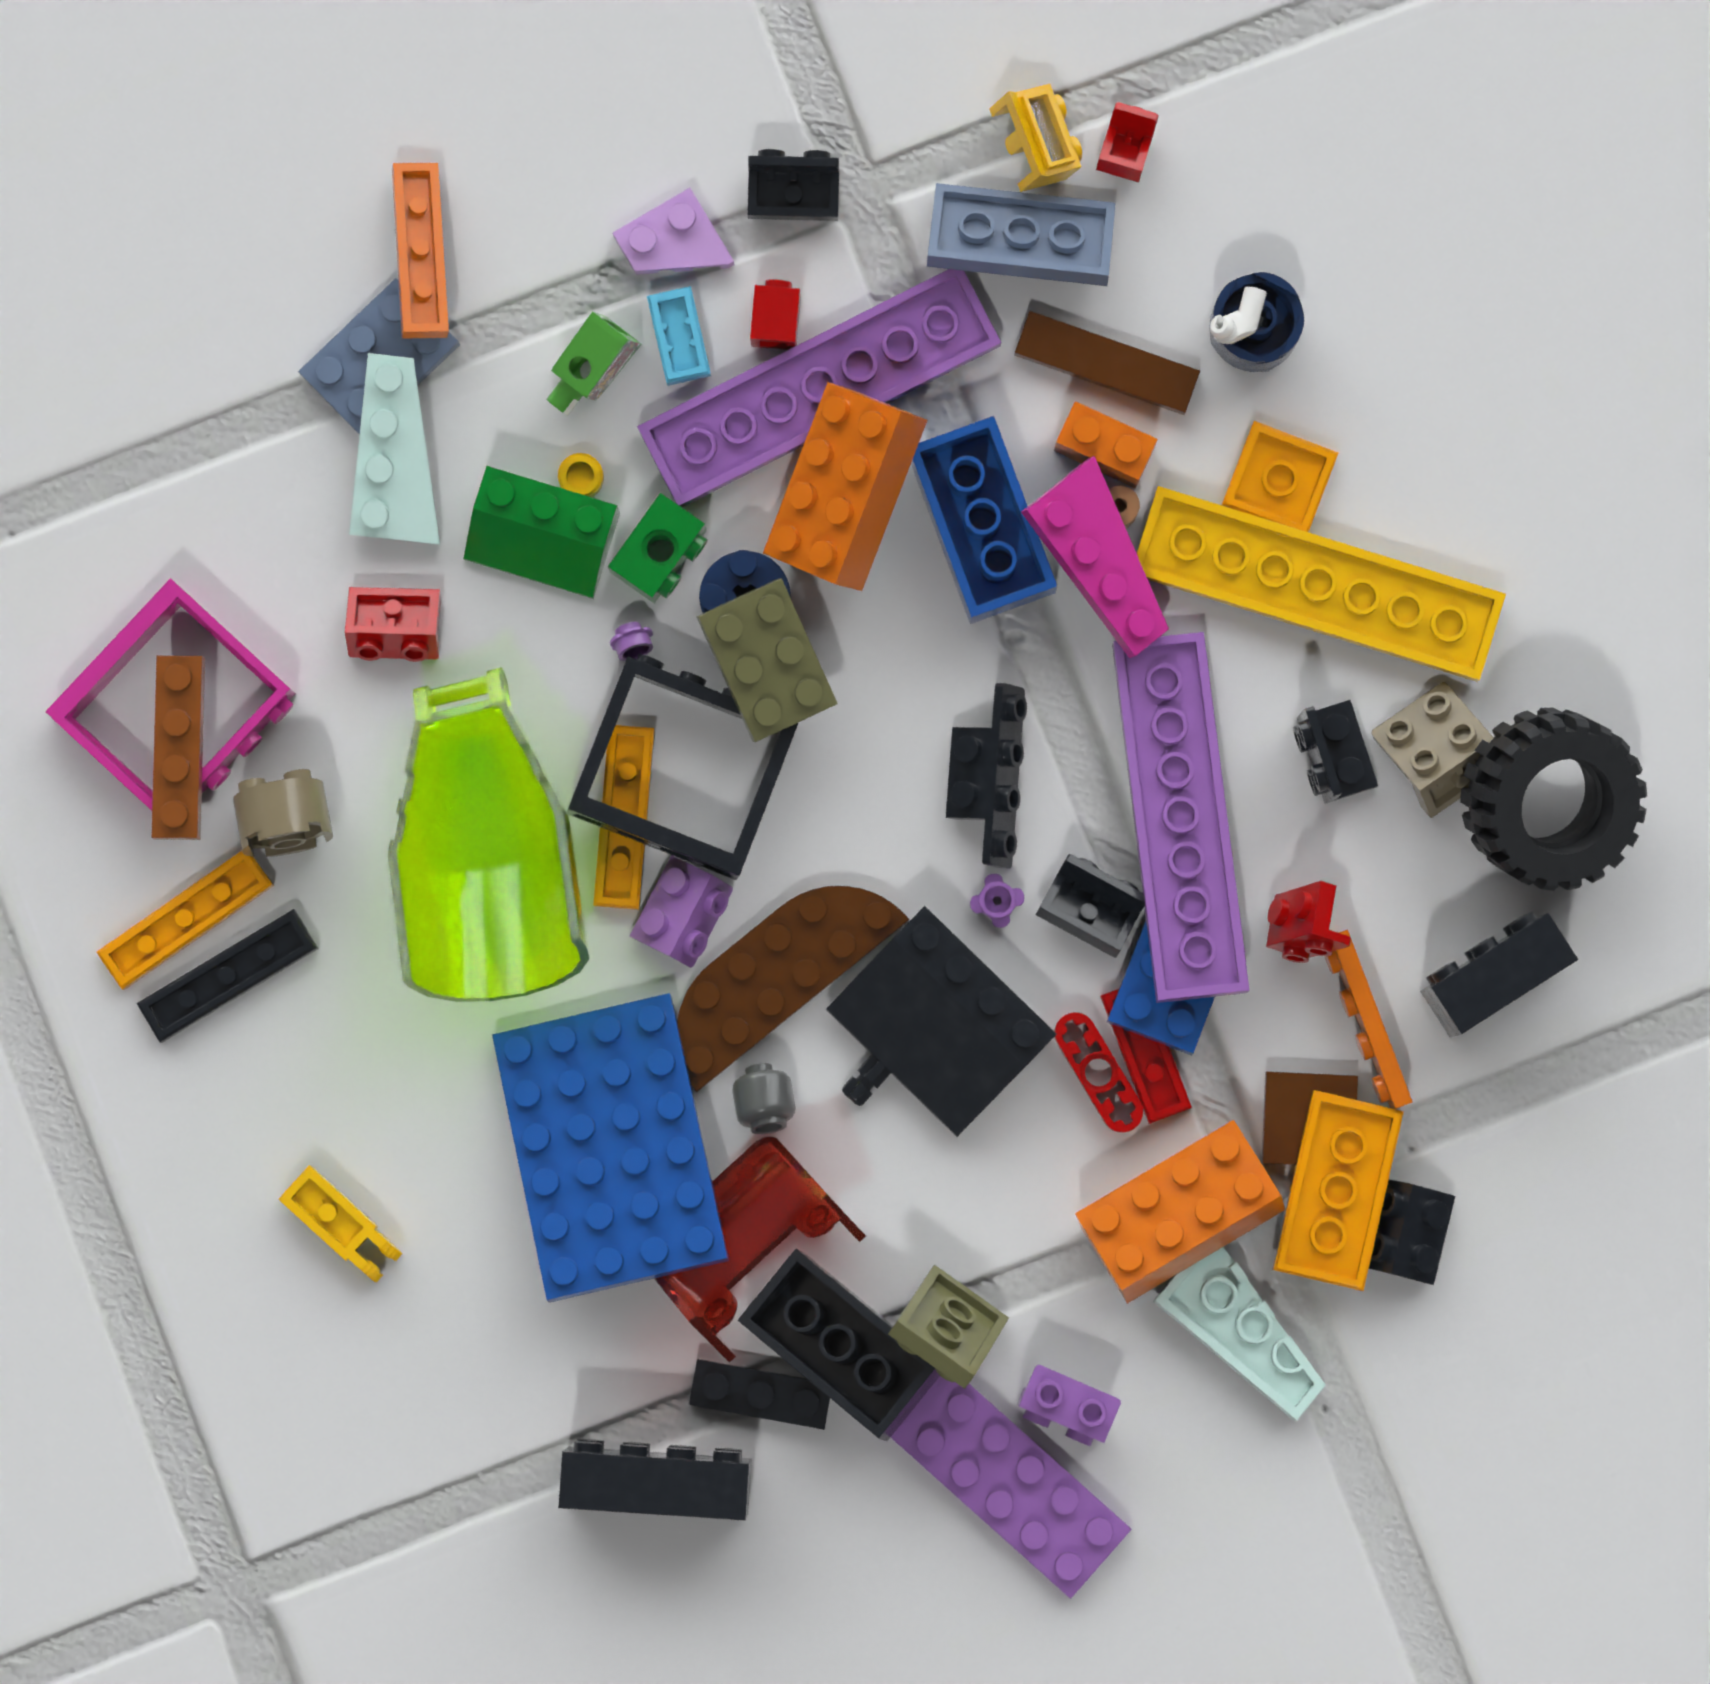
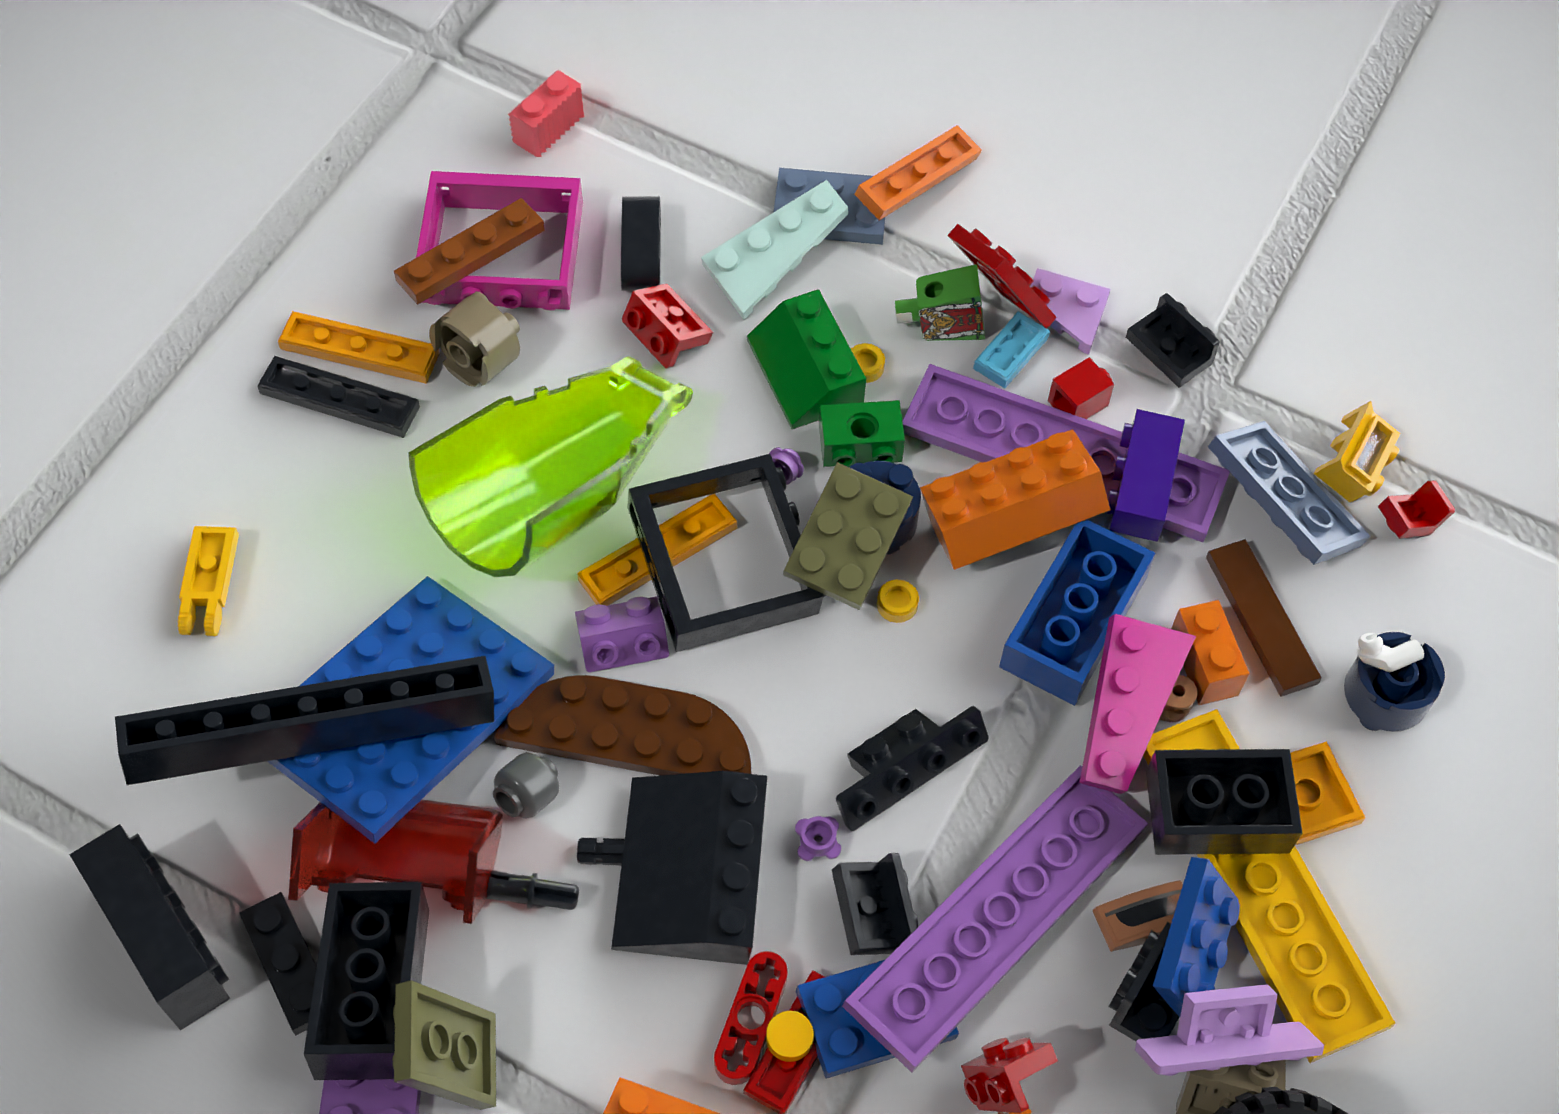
camera: 45 degrees right, 25 degrees down
(51, 542) = (547, 113): none -> coral brick
(282, 574) = (640, 242): none -> black beam
(594, 1242) = (303, 720): none -> black brick
(619, 295) = (998, 269): none -> red plate
(840, 654) = (897, 601): none -> yellow tile
(858, 1161) = (531, 890): none -> black axle
(910, 348) = (1145, 474): none -> dark purple brick
(1141, 1057) = (789, 1036): none -> yellow tile
(1244, 568) = (1223, 801): none -> black brick
(1270, 701) = (1132, 917): none -> nougat slope
(1333, 694) = (1197, 934): none -> blue plate
(1419, 738) = (1226, 1031): none -> lavender bracket

